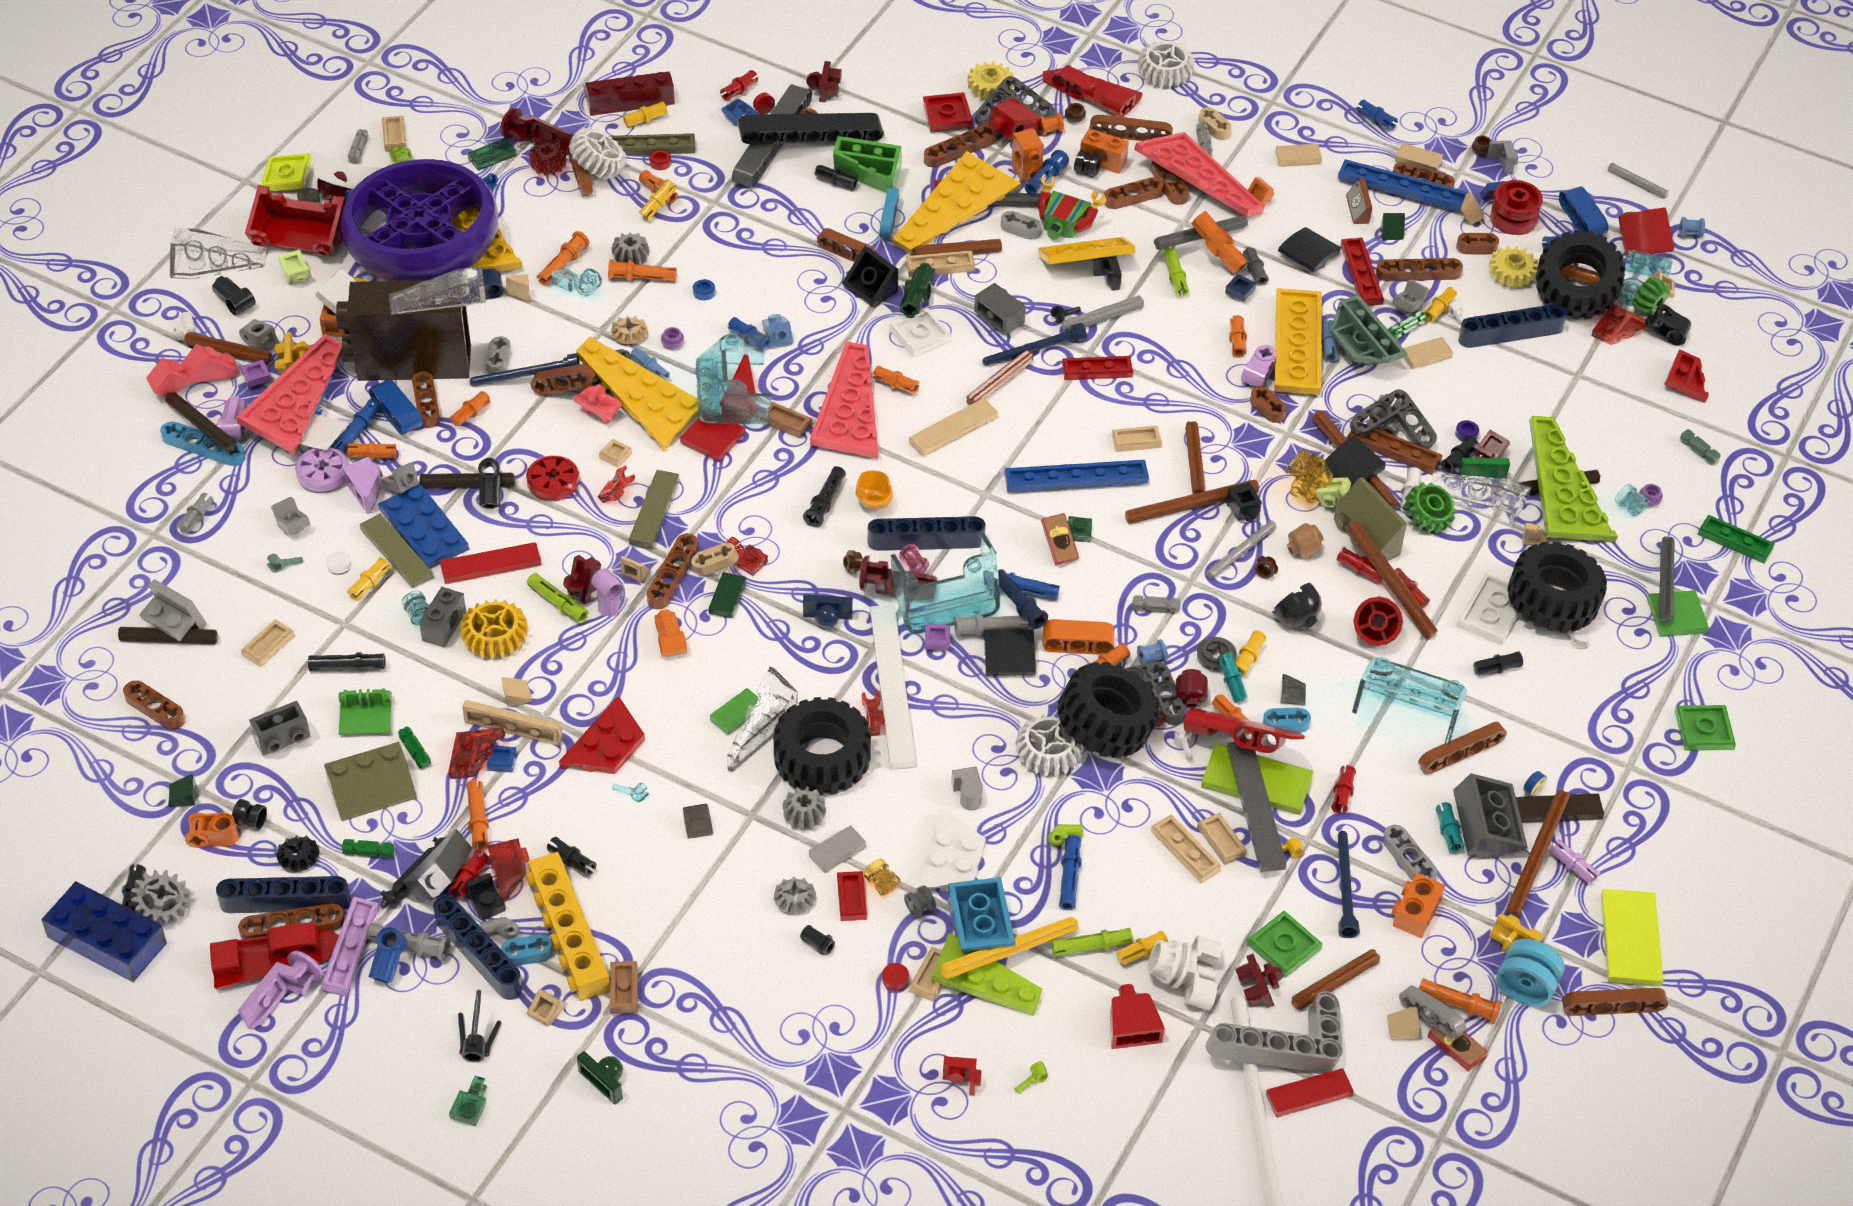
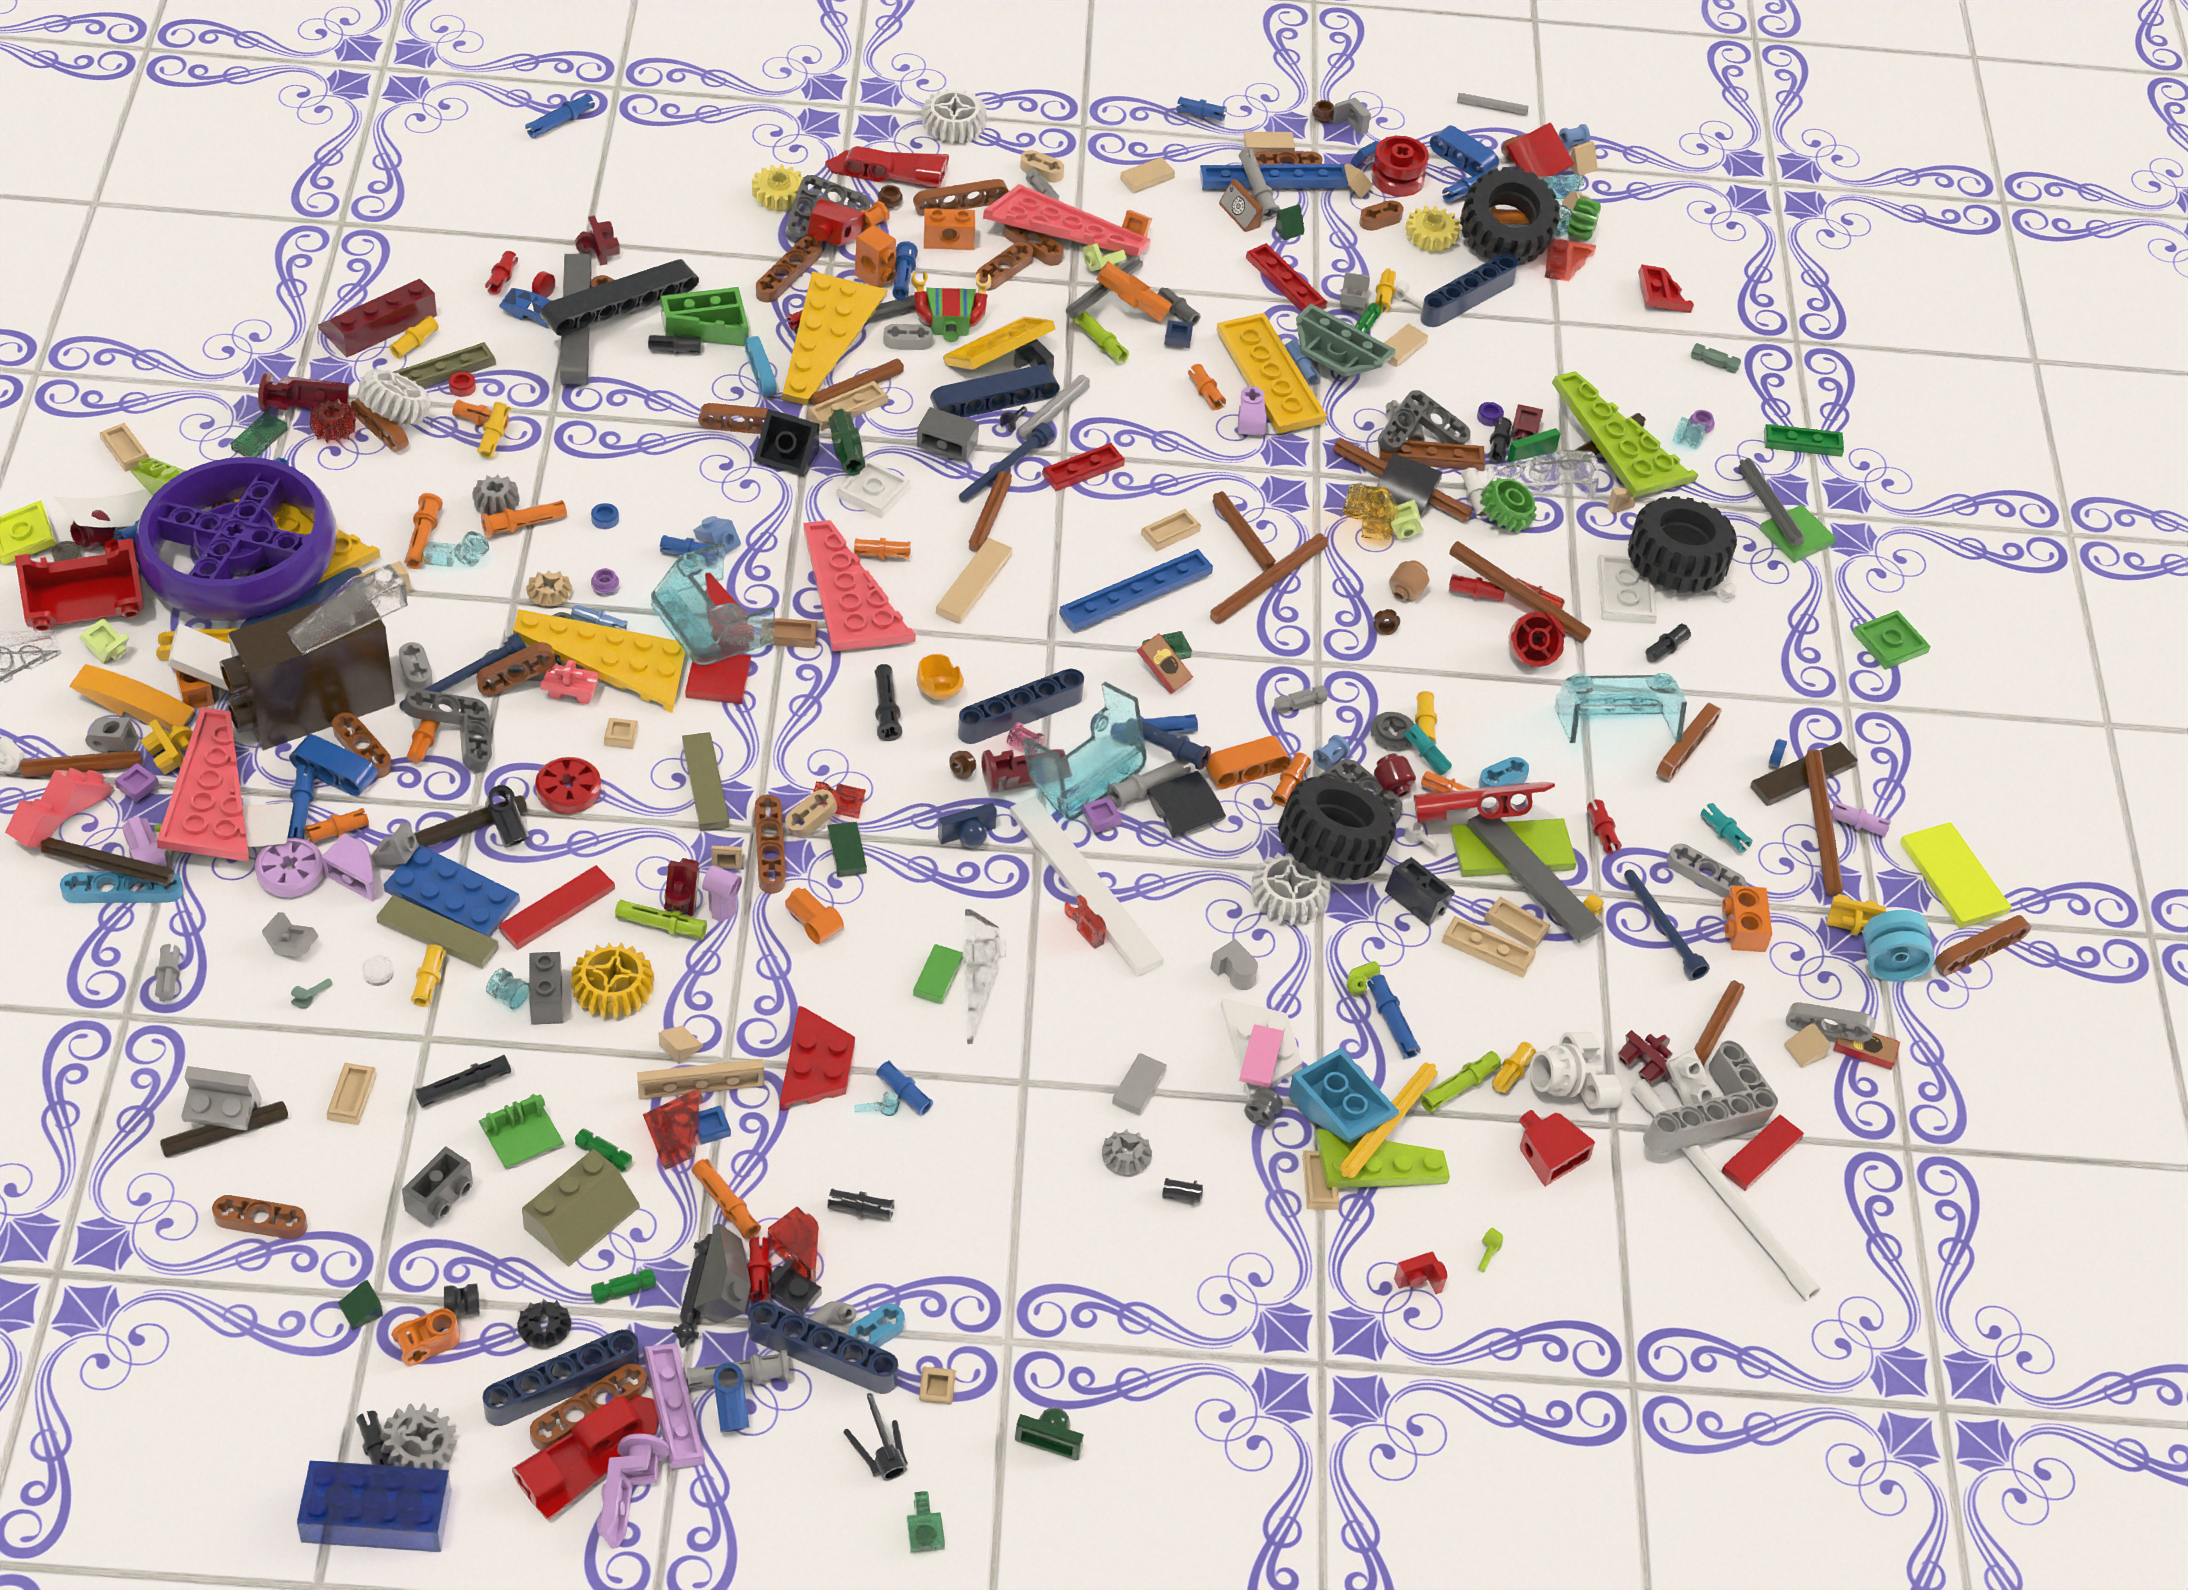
camera: 30 degrees left, 0 degrees up
(236, 299) = (56, 702): black piece -> none
(286, 312) = (131, 696): none -> light orange slope
(358, 145) = (90, 474): light grey axle -> none
(508, 405) = (465, 718): none -> dark grey beam
(551, 871) = (926, 1285): yellow brick -> none
(615, 487) = (649, 770): clear red plate -> none
(623, 987) = (1010, 1326): medium nougat plate -> none
(657, 784) = (904, 1087): none -> blue pin
(697, 821) = (973, 1111): clear smoke slope -> none
(804, 808) = (1080, 1053): light grey gear -> none
(822, 720) = (1068, 947): black tyre -> none
(851, 896) = (1186, 1129): red tile -> none
(883, 879) = (1208, 1096): clear yellow wheel -> none
(895, 976) = (1285, 1198): red tile -> none
(936, 861) = (1261, 1056): none -> bright pink slope
(947, 111) = (752, 235): red plate -> none
(1061, 288) = (996, 391): none -> dark blue beam
(1087, 163) = (939, 248): black wheel -> none
(1153, 783) = (1419, 890): none -> black hinge
(1218, 213) = (1095, 261): none -> yellowish green bracket
(1241, 549) = (1348, 612): light grey bar -> none
(1246, 506) = (1324, 560): black brick -> none
(1269, 406) = (1281, 449): dark orange beam -> none
(1279, 1009) = (1690, 1078): none -> white hips
(1284, 943) = (1643, 1007): bright green tile -> none
(1292, 691) = (1489, 743): clear smoke slope -> none
(1299, 608) = (1451, 653): black cylinder -> none
(1309, 249) = (1221, 271): black slope -> none
(1375, 515) = (1454, 522): olive slope -> none
(1381, 196) = (1261, 192): none -> light grey pin
(1419, 266) = (1367, 251): dark orange beam -> none
(1471, 1003) = (1857, 999): orange pin -> none
(1489, 816) = (1759, 803): dark grey slope -> none
(1670, 325) = (1616, 243): black piece -> none
(1688, 248) = (1584, 158): none -> tan slope

